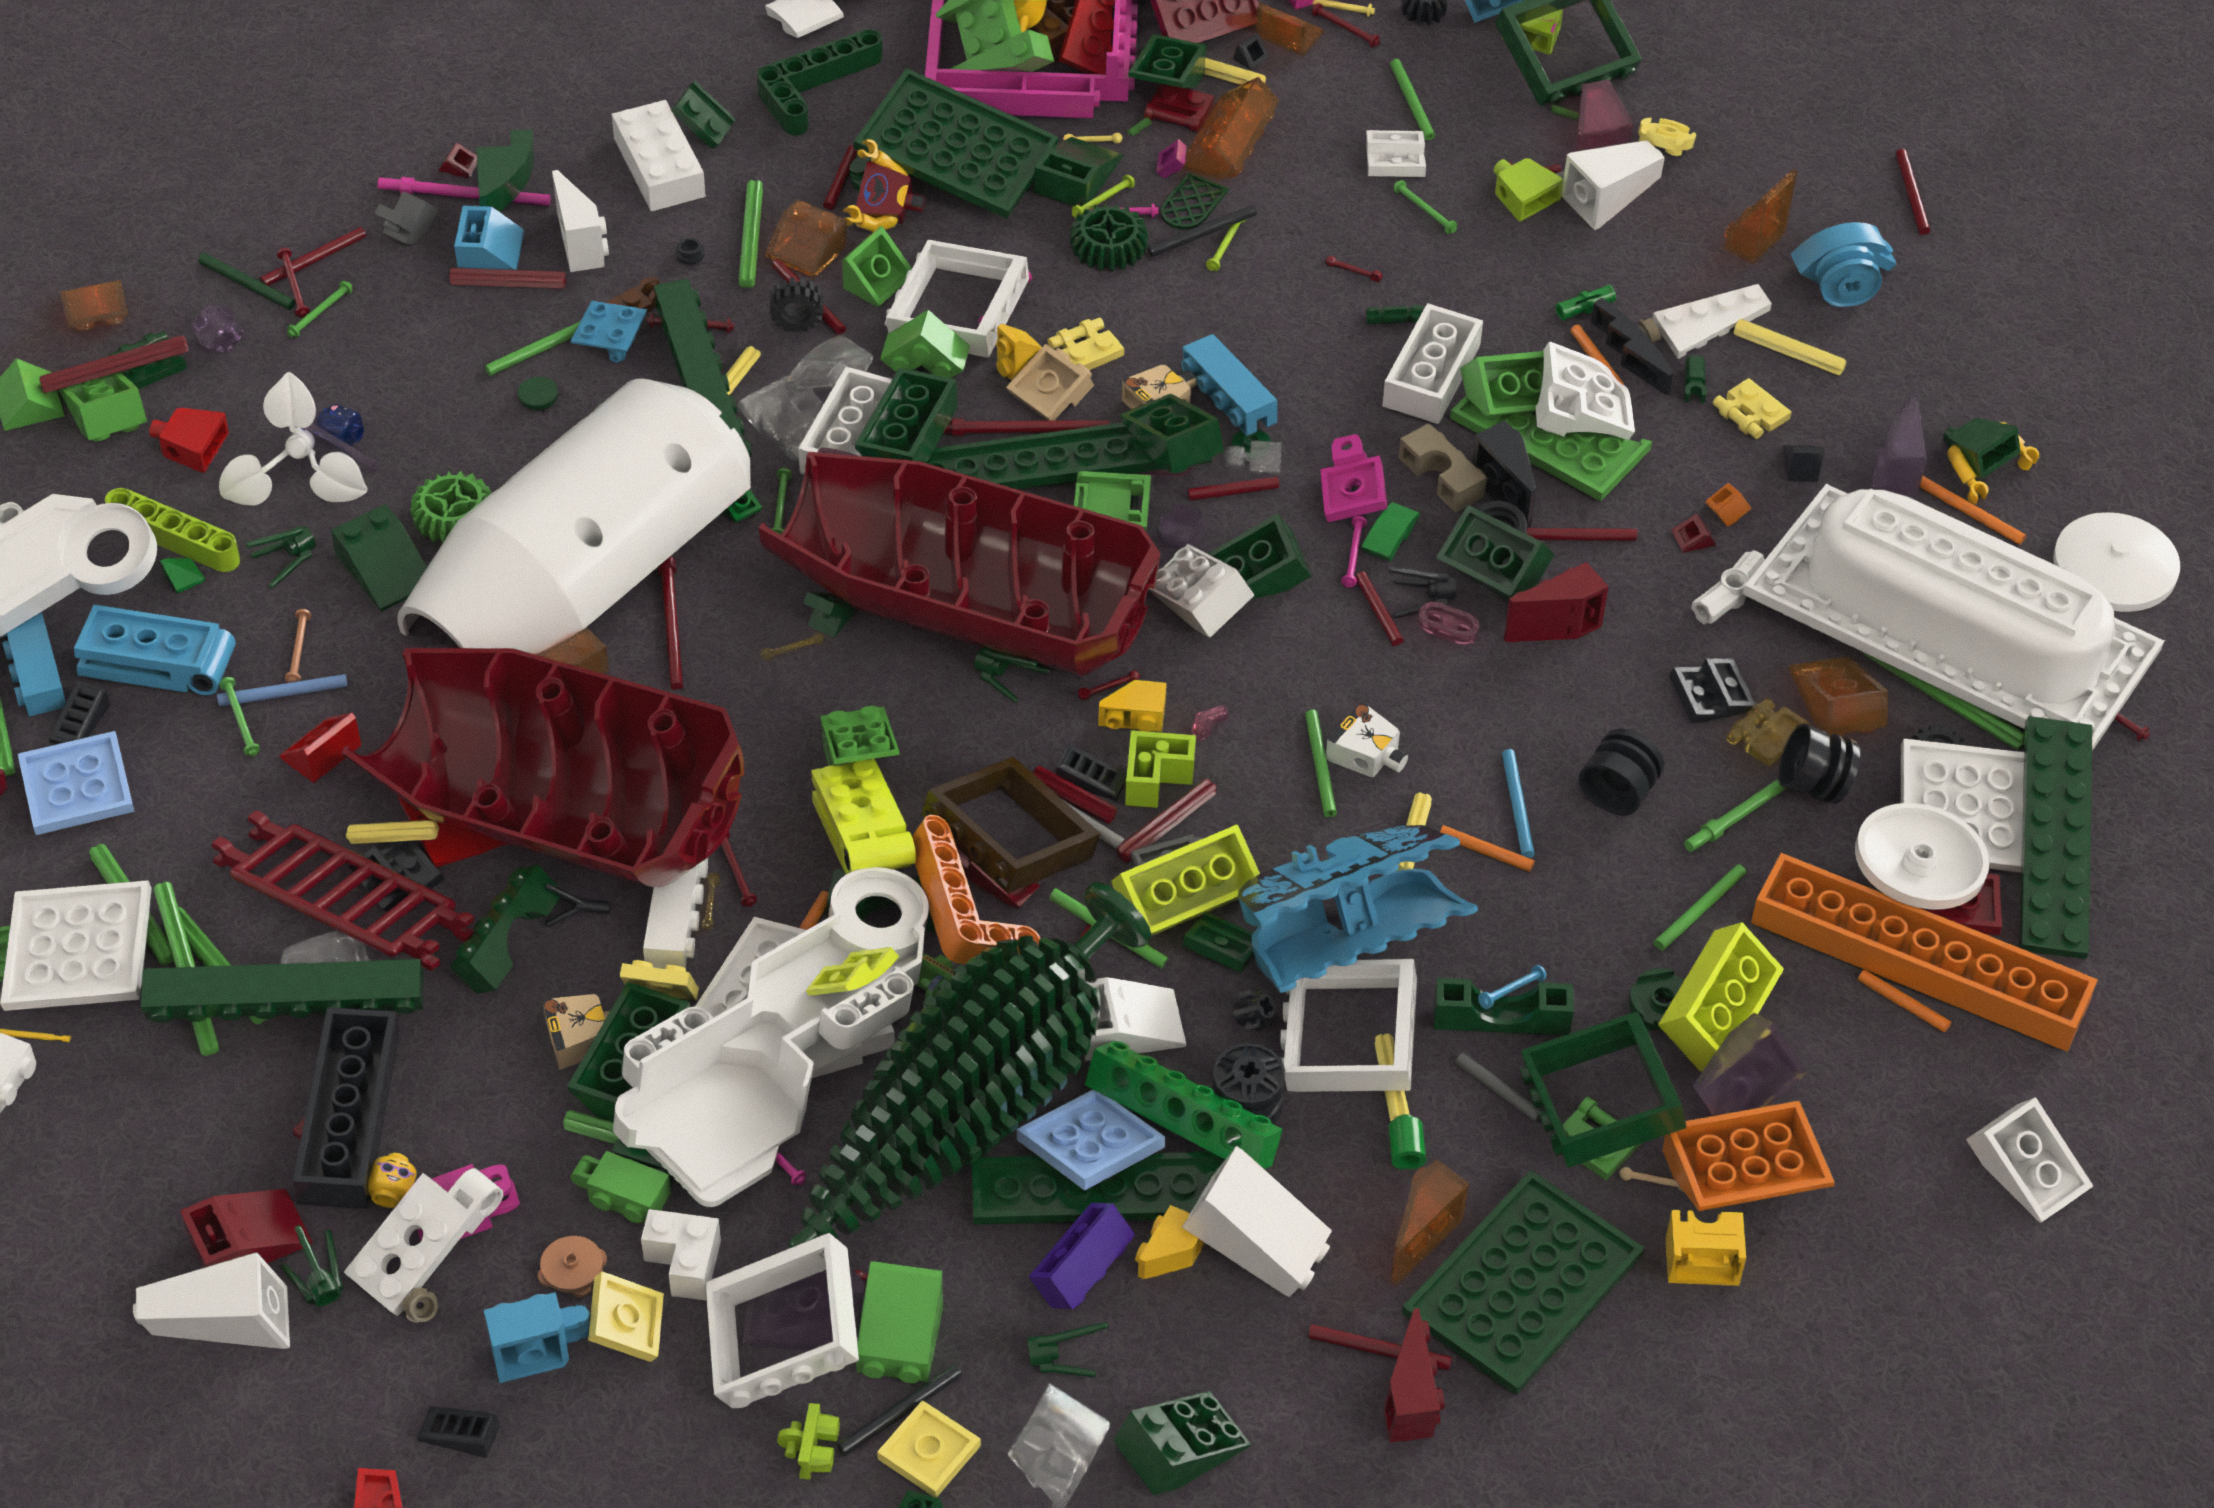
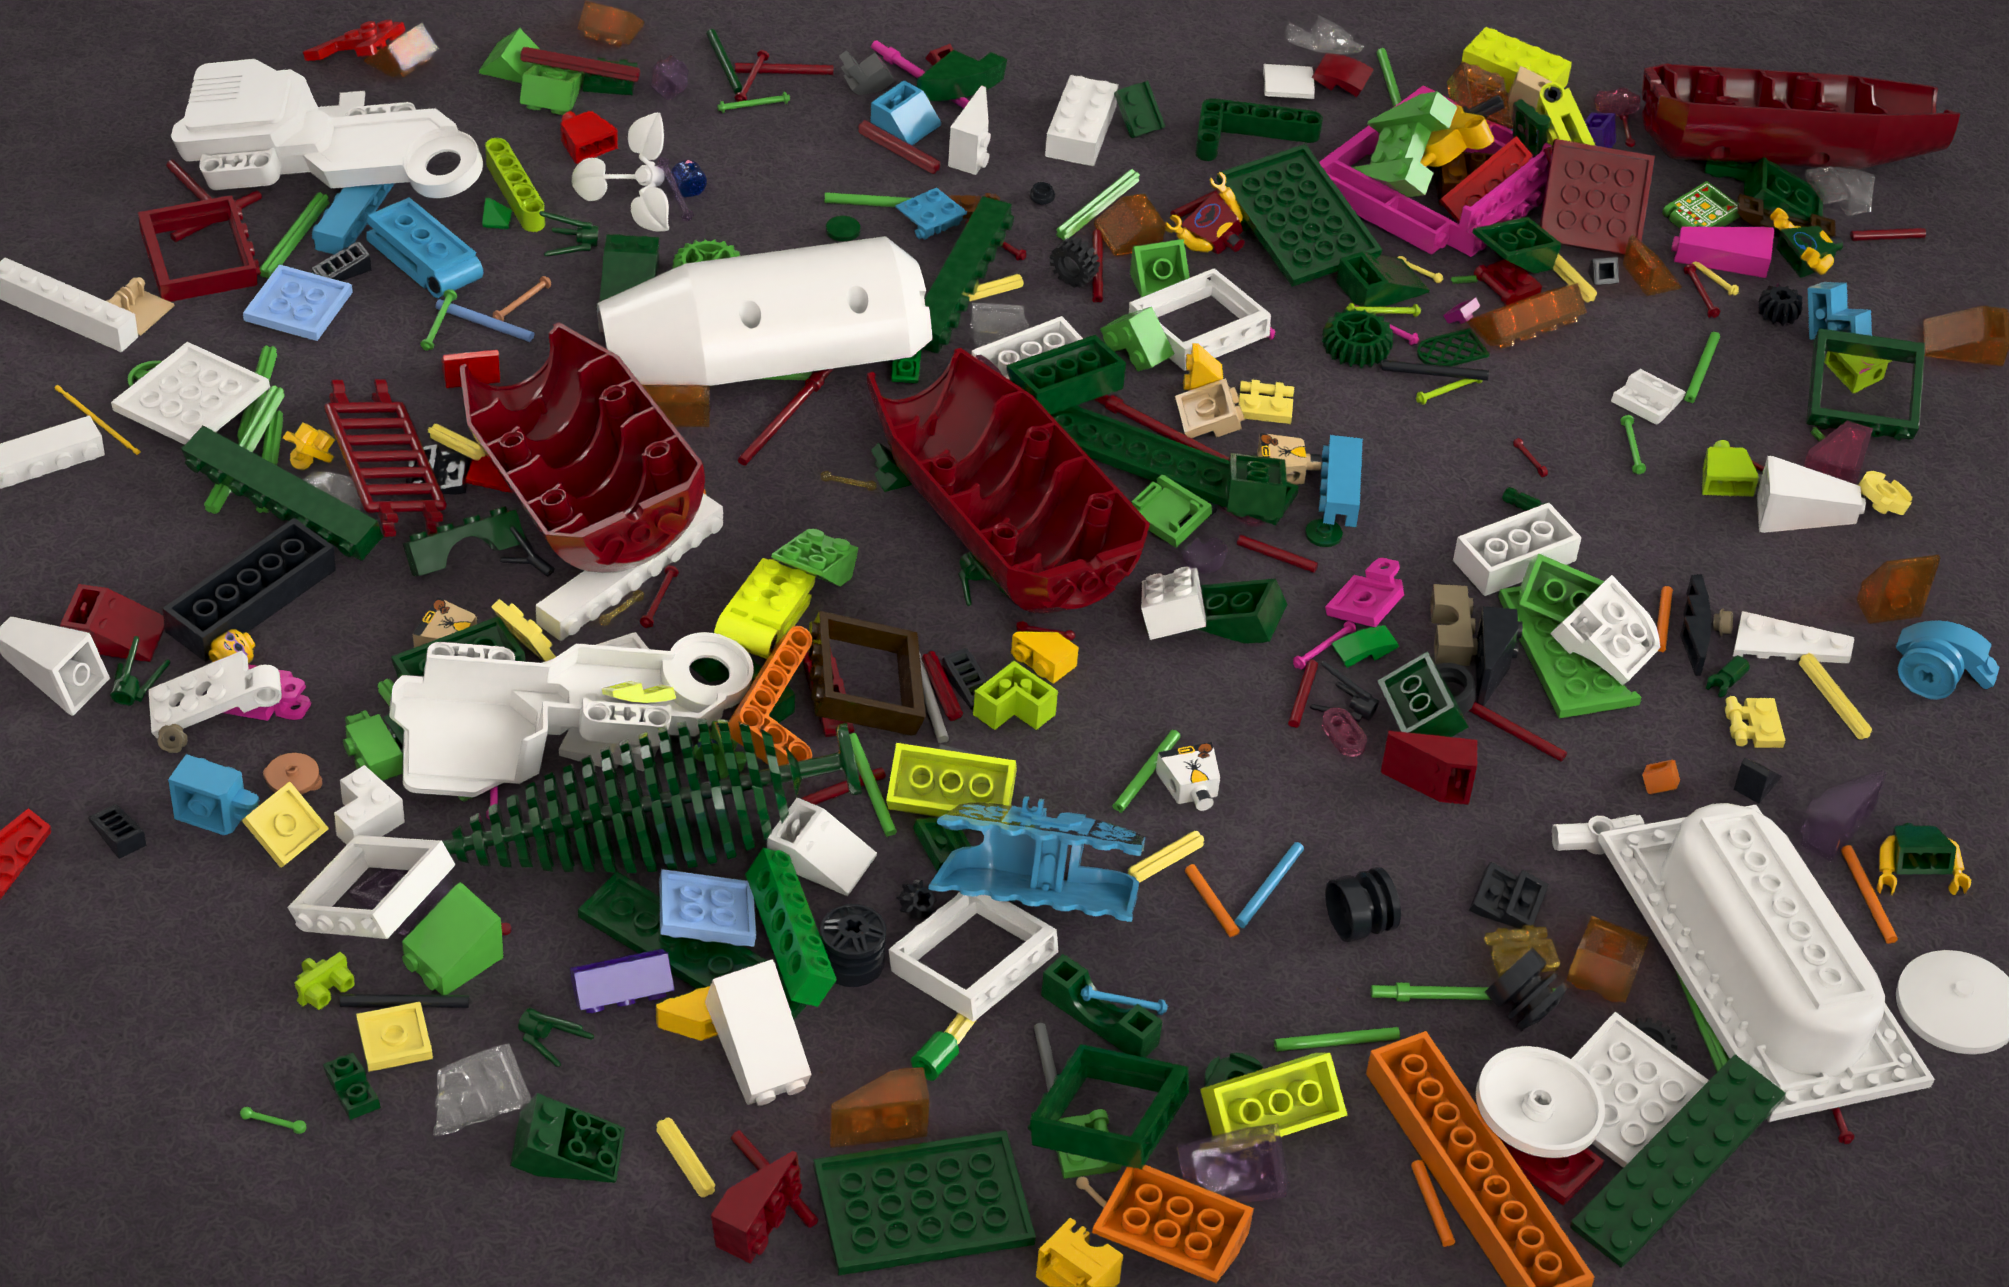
camera: 35 degrees right, 5 degrees down
(253, 925) = (309, 444): none -> yellow hips
(826, 363) = (1075, 311): clear slope -> none
(1167, 819) = (995, 740): dark red axle -> none
(1204, 721) = (1088, 693): clear pink arm -> none
(1264, 457) = (1317, 544): clear plate -> none
(1289, 1380) = (685, 1157): none -> light yellow axle
(1584, 302) = (1683, 574): green pin -> none
(1693, 534) = (1611, 782): dark red slope -> none

